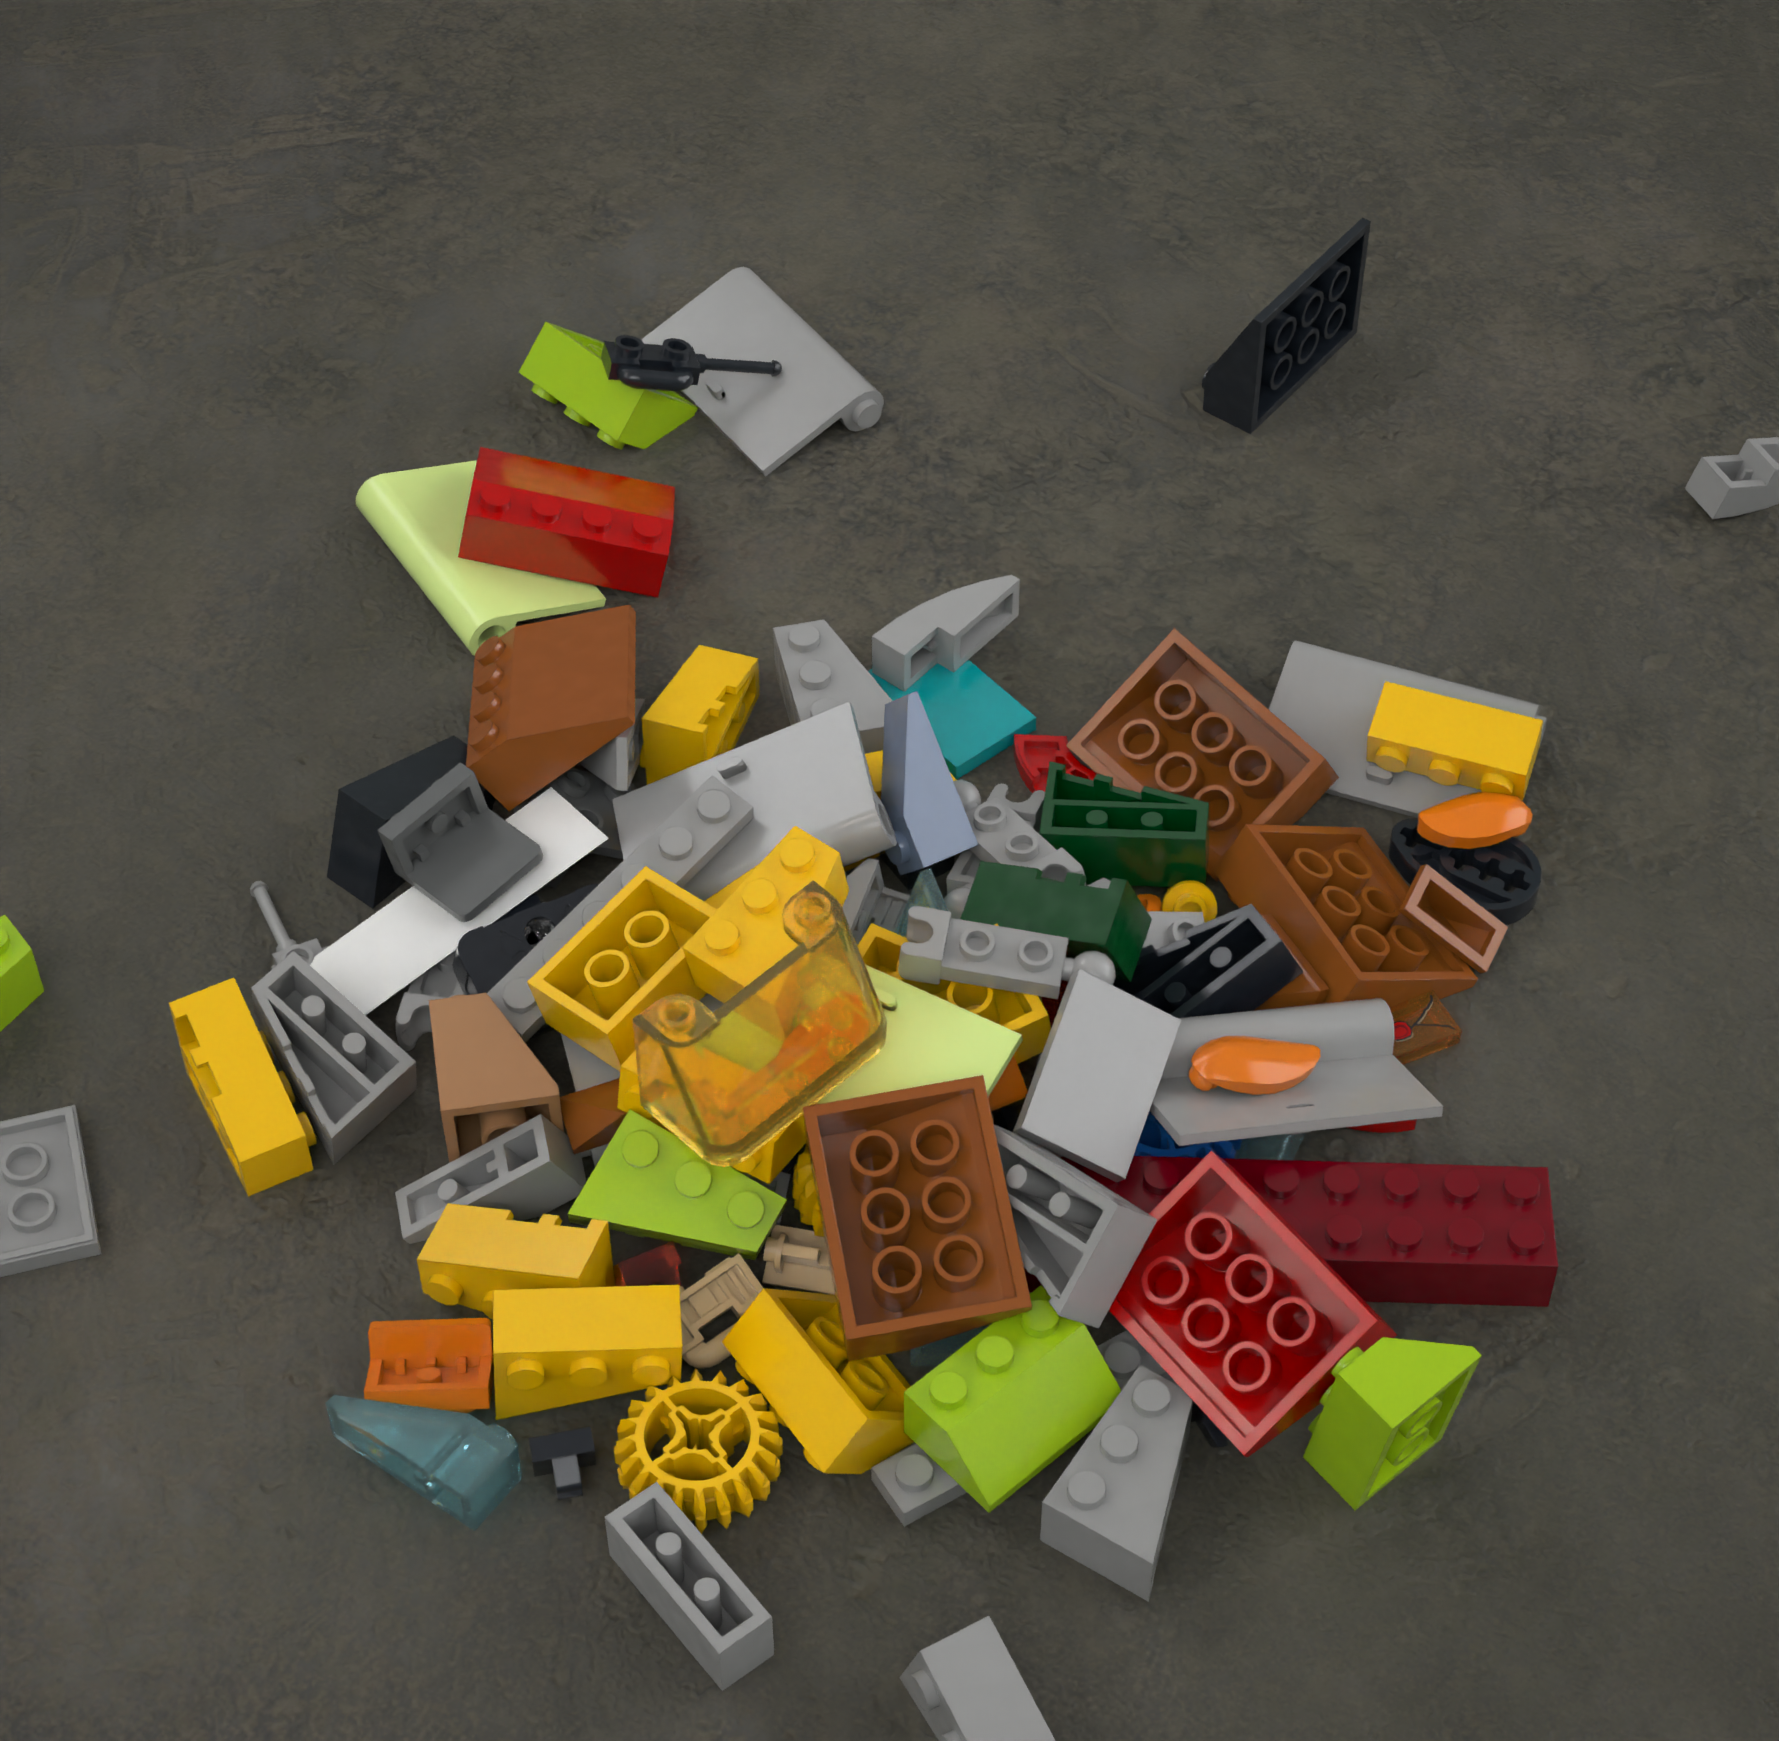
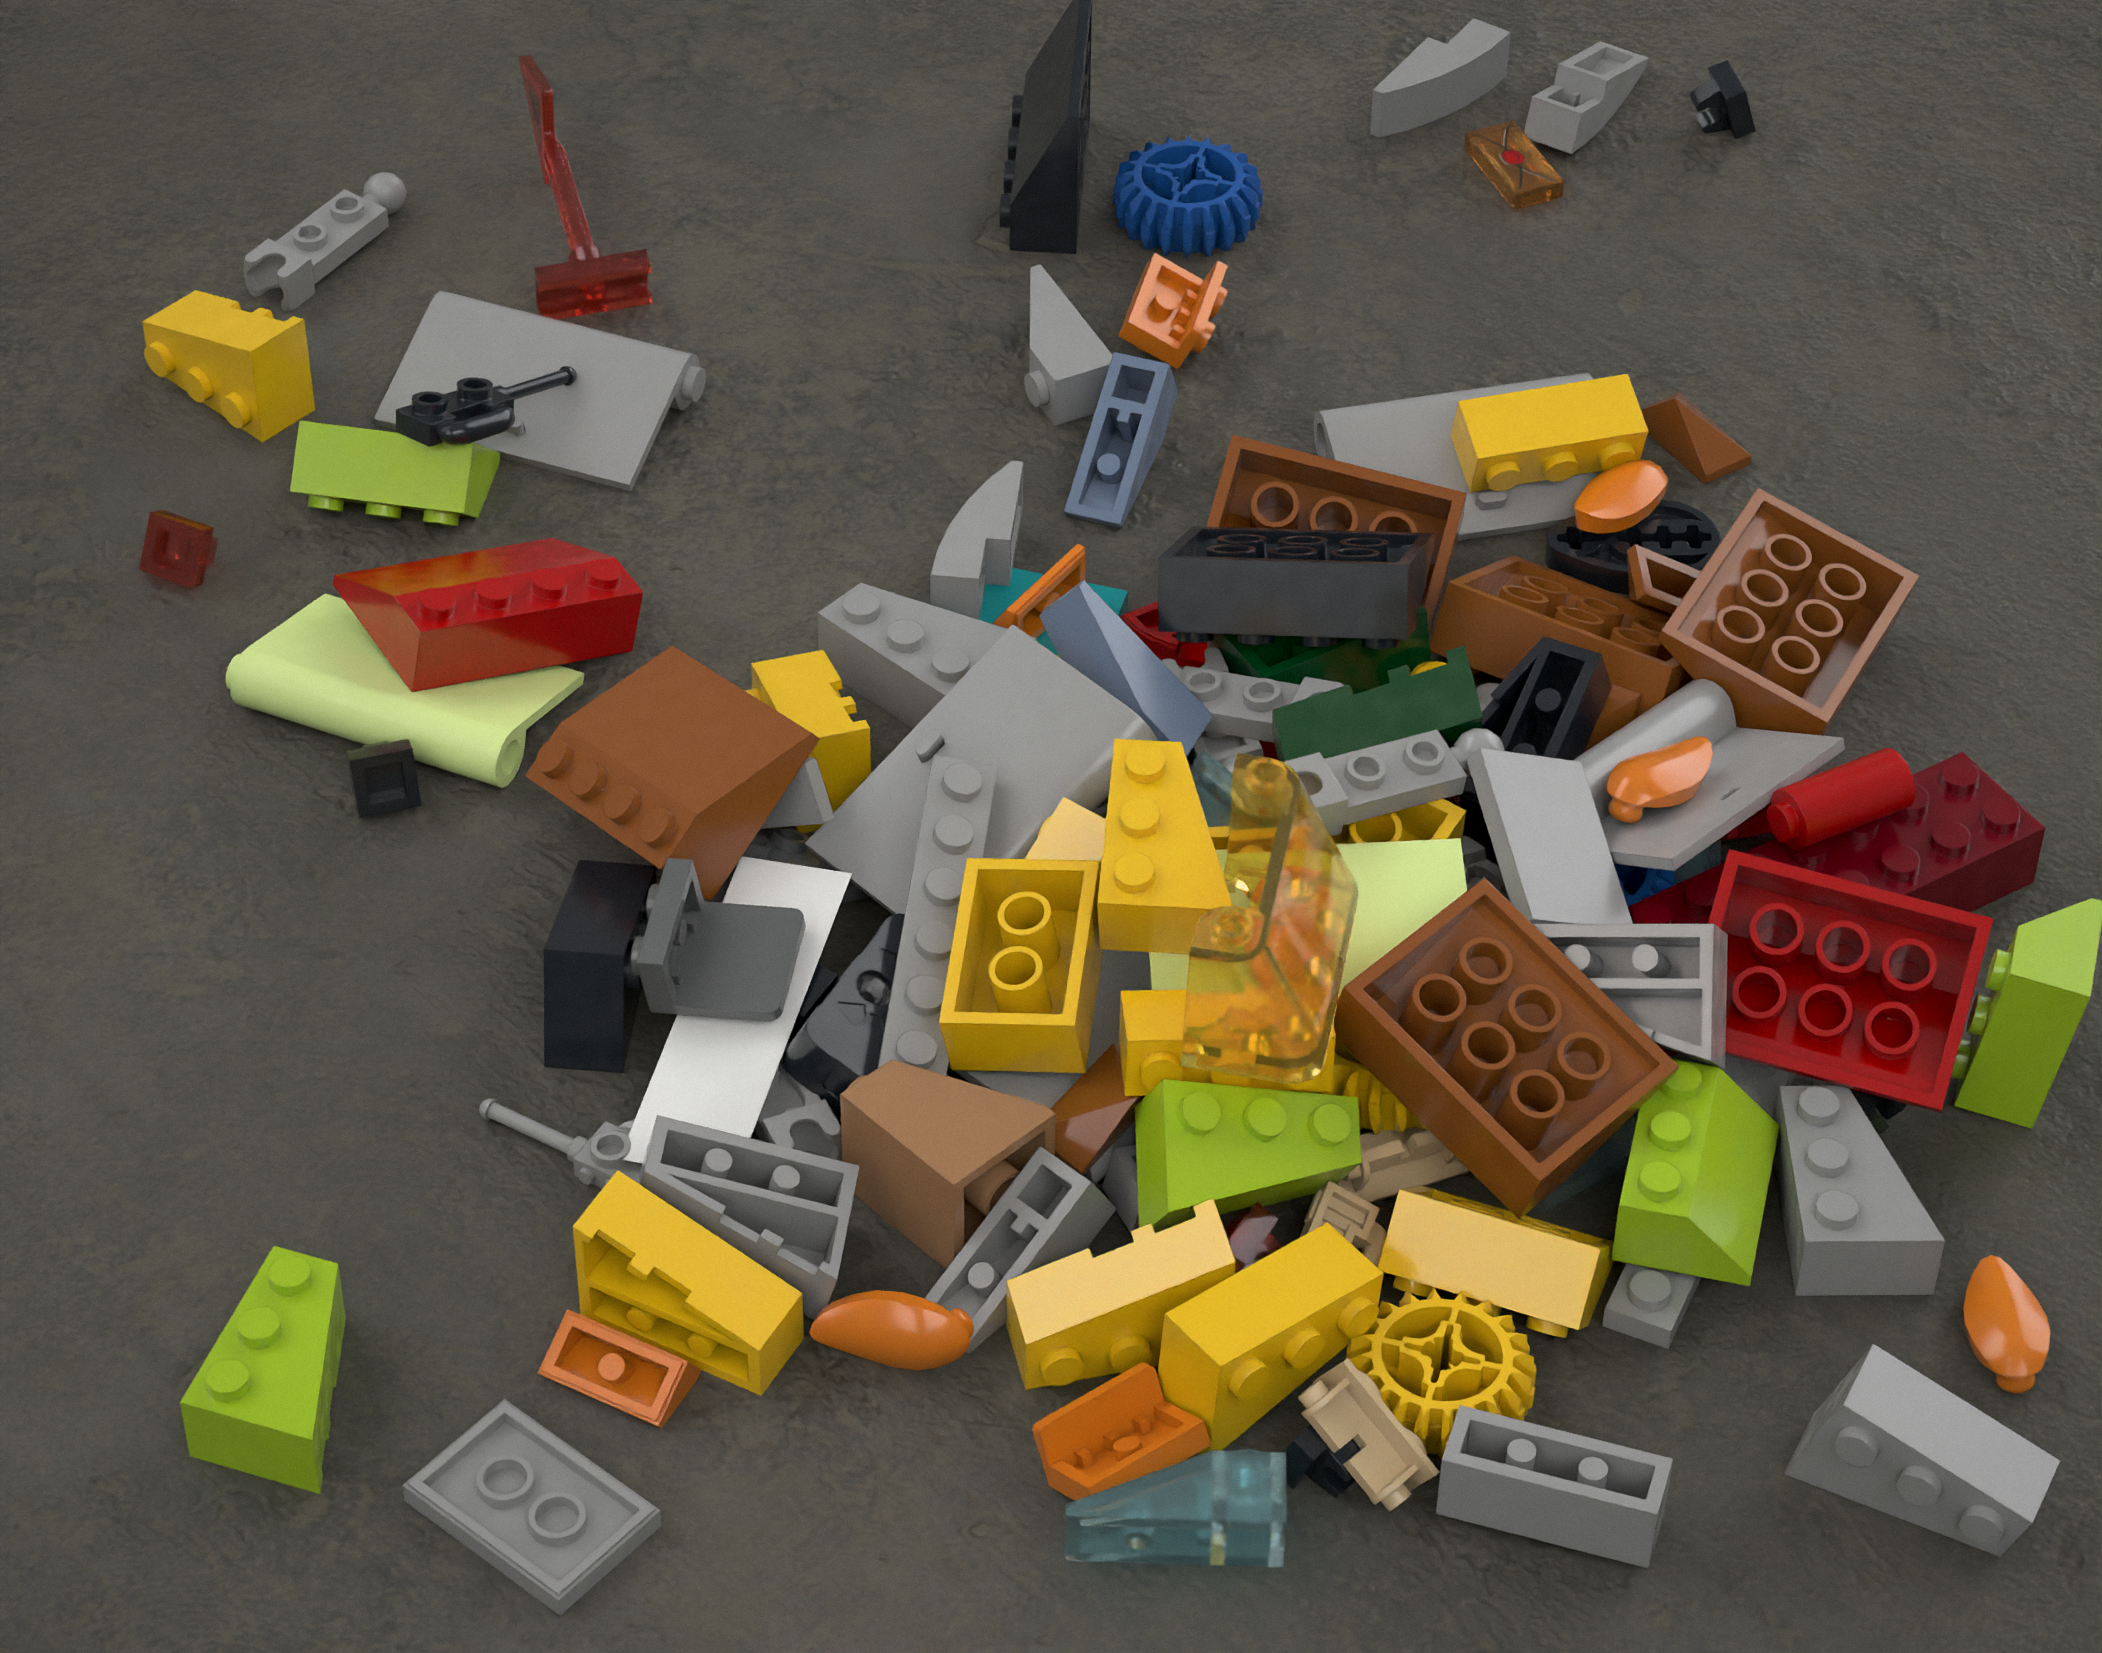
camera: 35 degrees left, 5 degrees down
(171, 1123) = (618, 1369): none -> orange slope
(358, 1197) = (894, 1329): none -> orange arm
(396, 611) = (383, 778): none -> black tile
(418, 382) = (177, 548): none -> clear red tile
(566, 262) = (234, 361): none -> yellow wedge
(583, 1440) = (1390, 1458): none -> tan hinge
(715, 196) = (323, 240): none -> light grey plate
(868, 303) = (588, 279): none -> clear red piece
(960, 692) = (1051, 586): none -> orange slope
(1118, 768) = (1293, 585): none -> black slope
(1134, 597) = (1122, 439): none -> sand blue slope
(1148, 509) = (1064, 356): none -> light grey slope
(1169, 1659) = (2005, 1325): none -> orange arm
(1267, 508) = (1173, 310): none -> orange bracket
(1363, 424) = (1187, 196): none -> blue gear
(1381, 1155) = (1834, 801): none -> red piece
(1501, 988) = (1786, 617): none -> dark orange slope
(1601, 799) = (1694, 438): none -> dark orange slope
(1652, 412) = (1440, 78): none -> light grey slope
(1656, 508) = (1514, 165): none -> clear orange tile

